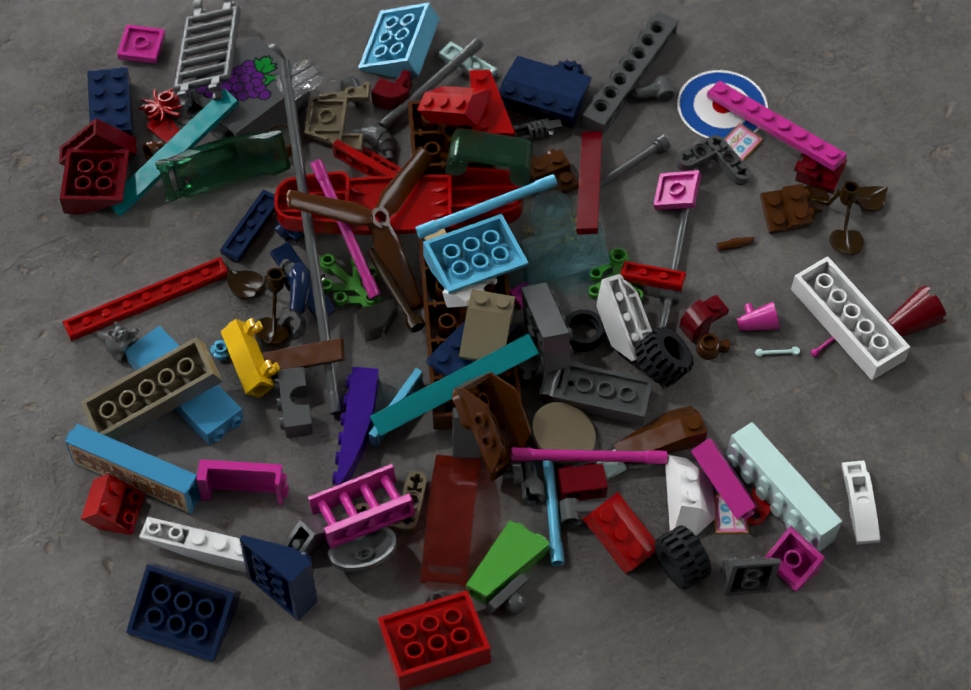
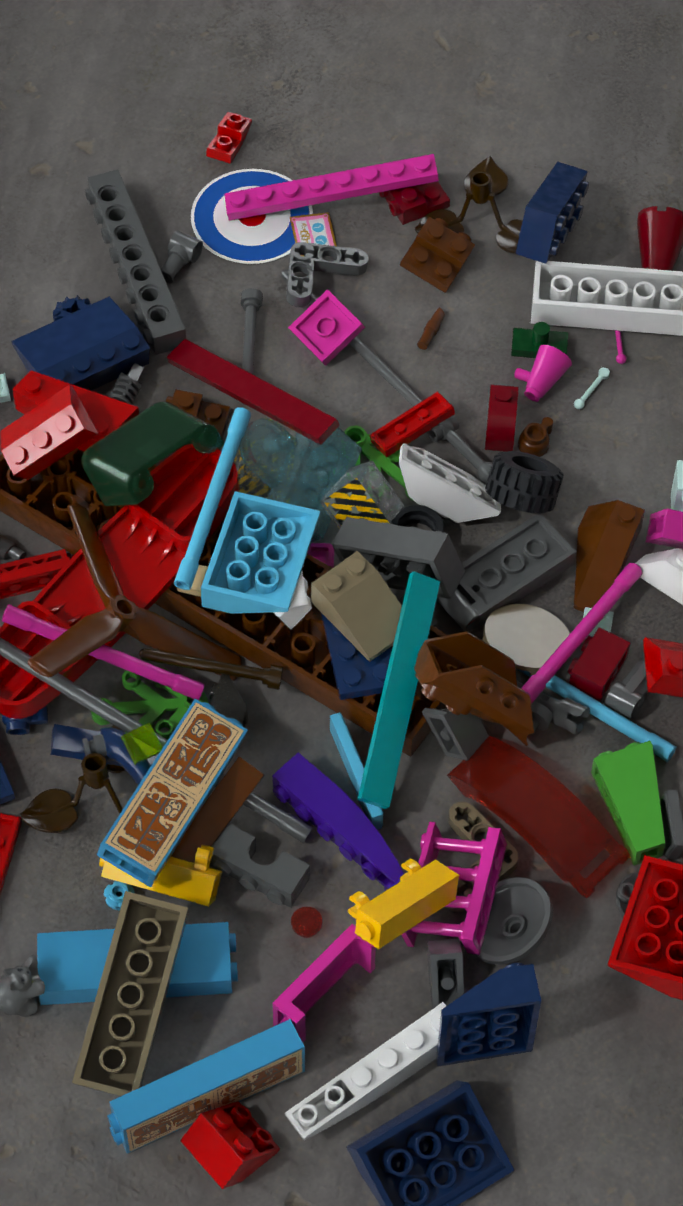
camera: 50 degrees left, 0 degrees up
(281, 450) = (306, 922): none -> clear red plate
(290, 321) = (172, 792): none -> brick
(306, 286) = (142, 743): none -> clear neon green tile
(317, 482) = (404, 904): none -> yellow brick
(571, 285) = (362, 494): none -> slope
(767, 56) = (229, 137): none -> red slope
(785, 307) = (527, 341): none -> dark green tile
(868, 239) = (552, 212): none -> dark blue brick

